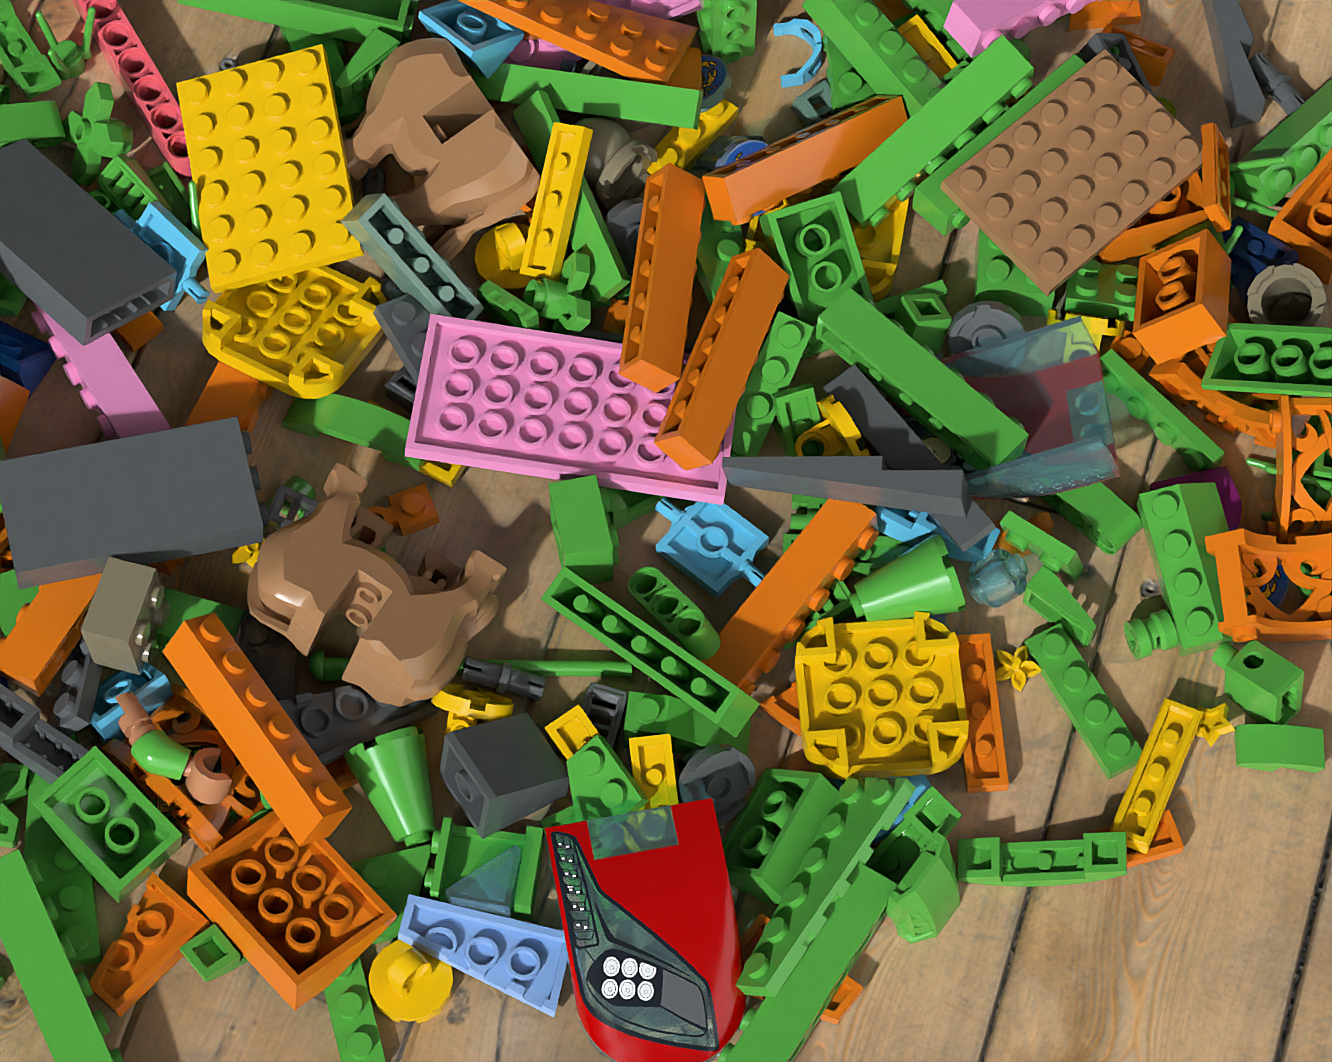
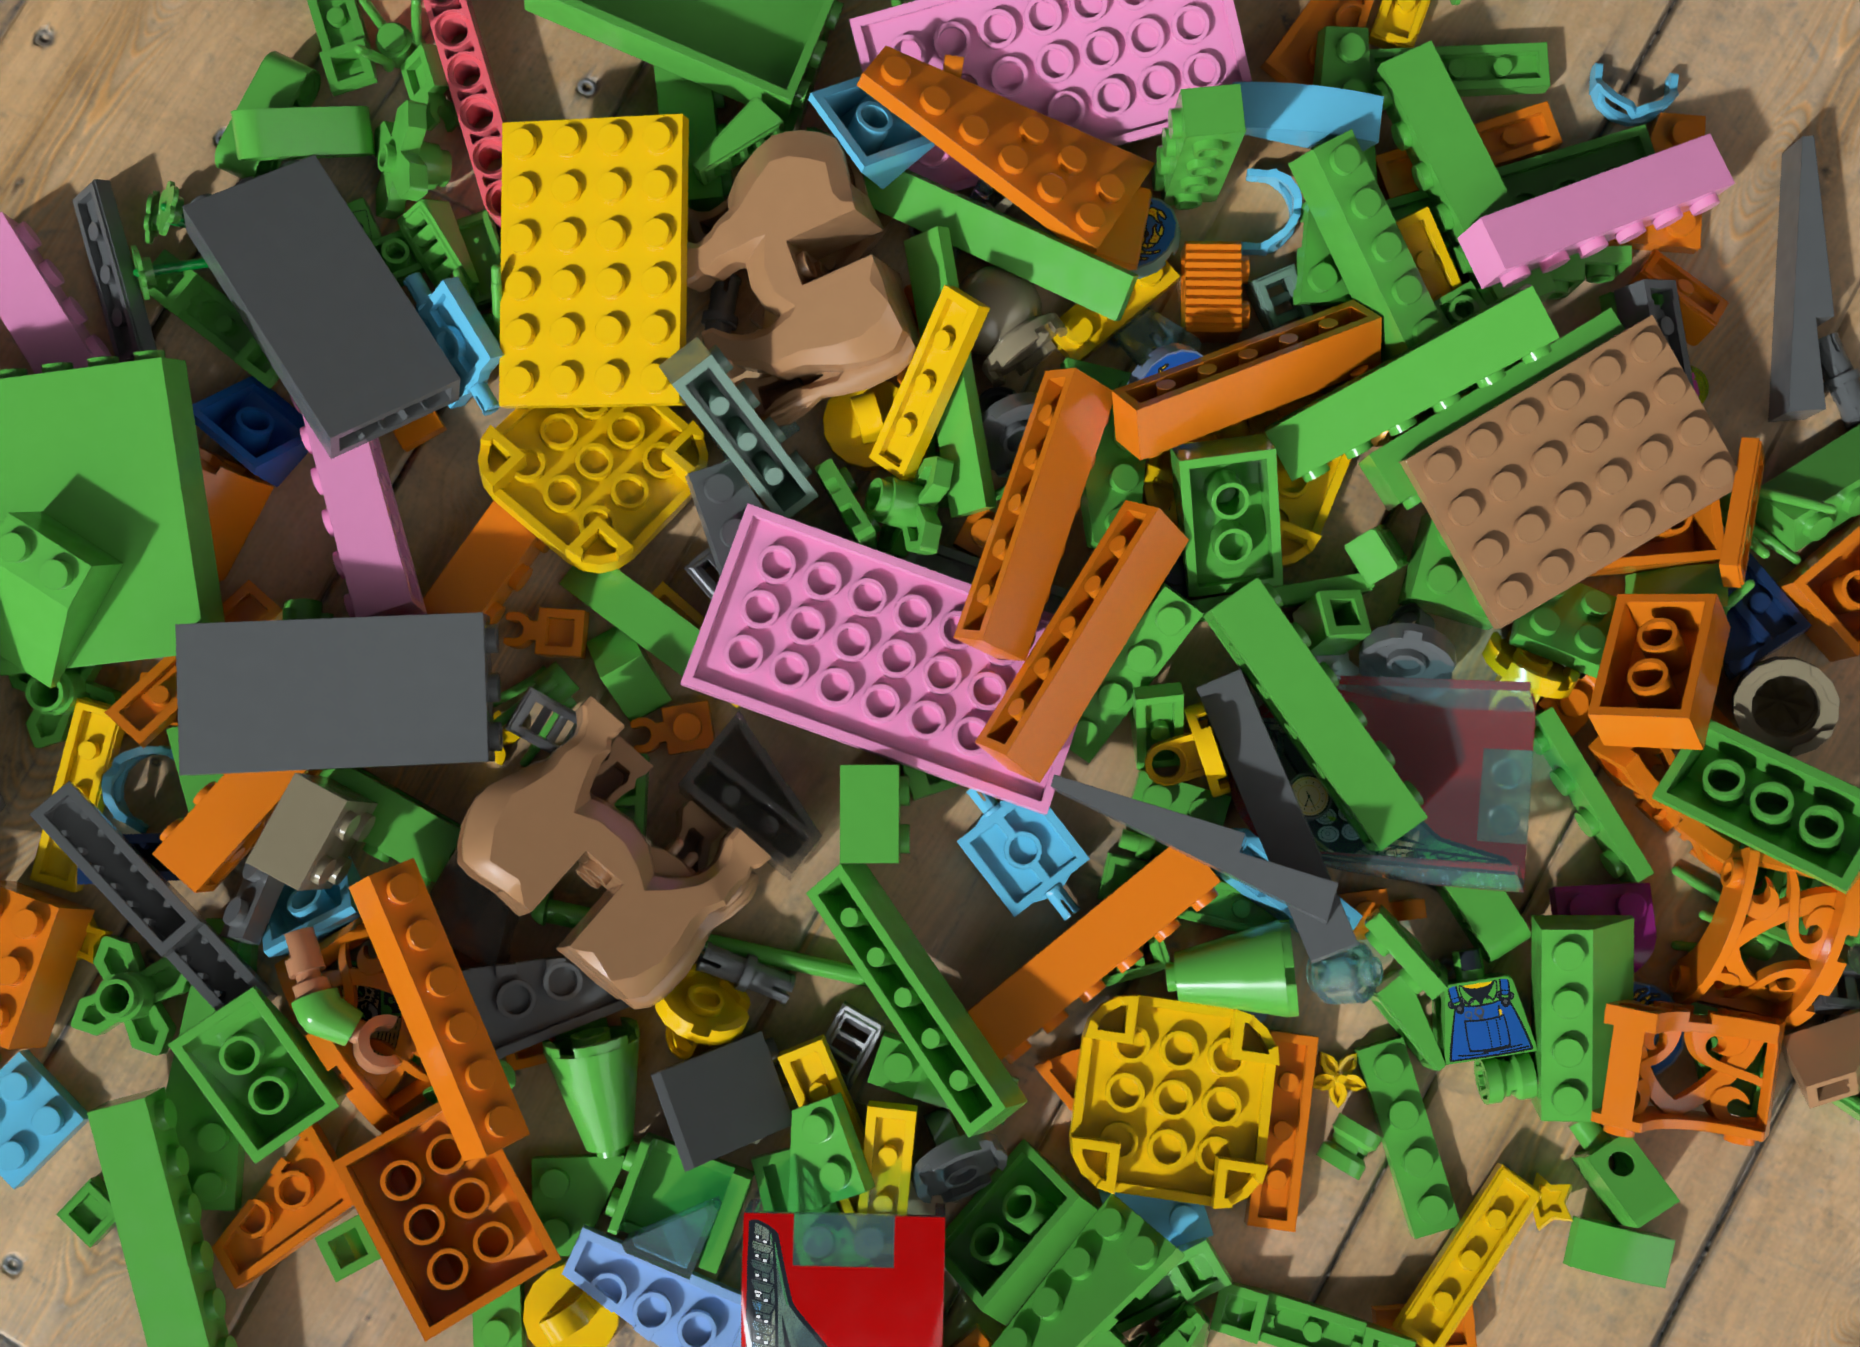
camera: 15 degrees right, 20 degrees up
(99, 68) = (427, 84): none -> bright green plate
(287, 456) = (555, 634): none -> orange plate
(362, 463) = (628, 673): none -> bright green slope
(467, 523) = (744, 790): none -> clear smoke wedge
(674, 613) = (972, 958): bright green beam -> none
(764, 106) = (1213, 290): none -> orange brick
(942, 264) = (1376, 554): none -> bright green slope
(1037, 710) = (1349, 1146): none -> bright green wheel
(1060, 39) = (1597, 268): none -> bright green slope
(1115, 589) = (1479, 1013): none -> torso

